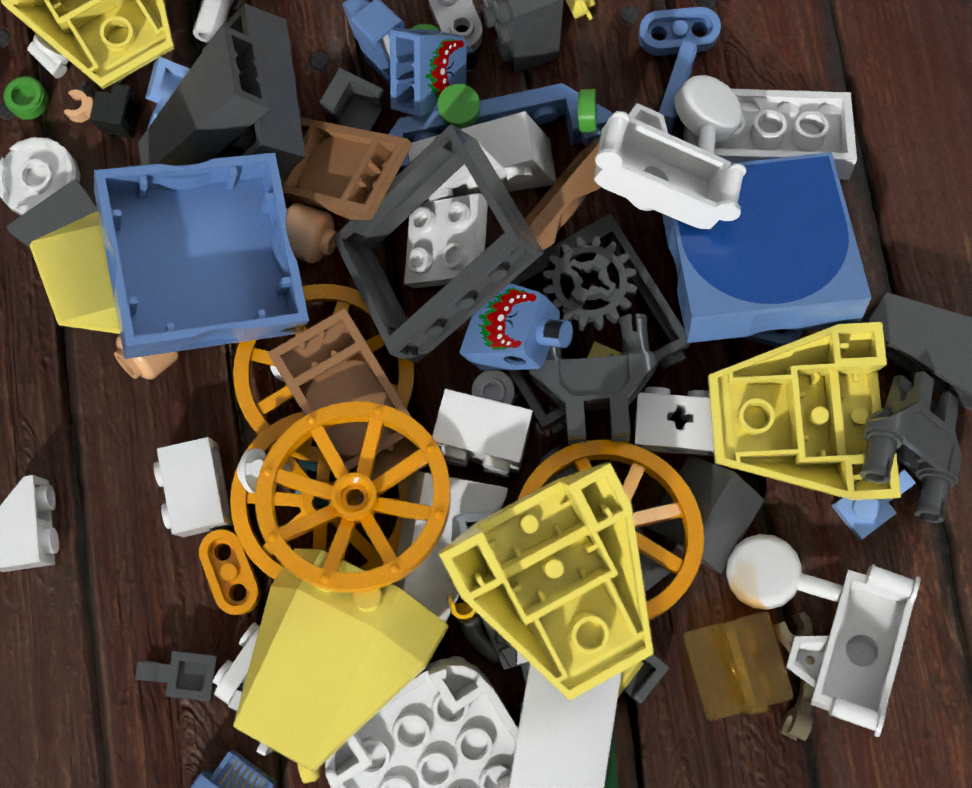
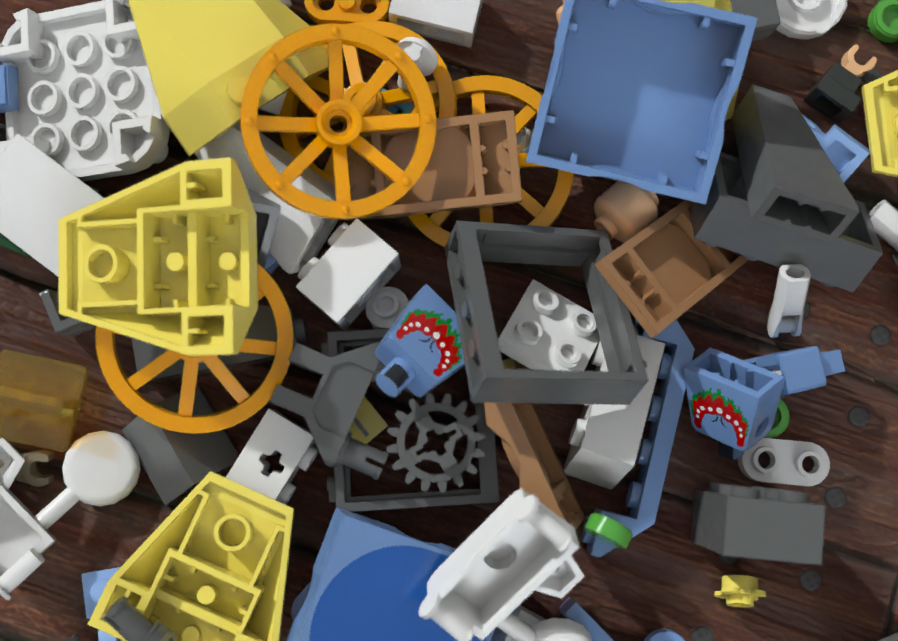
camera: 105 degrees right, 5 degrees up
(317, 63) = (789, 300): none -> white bar
(353, 101) = (735, 316): dark grey panel -> none
(459, 106) = (677, 409): bright green tile -> none

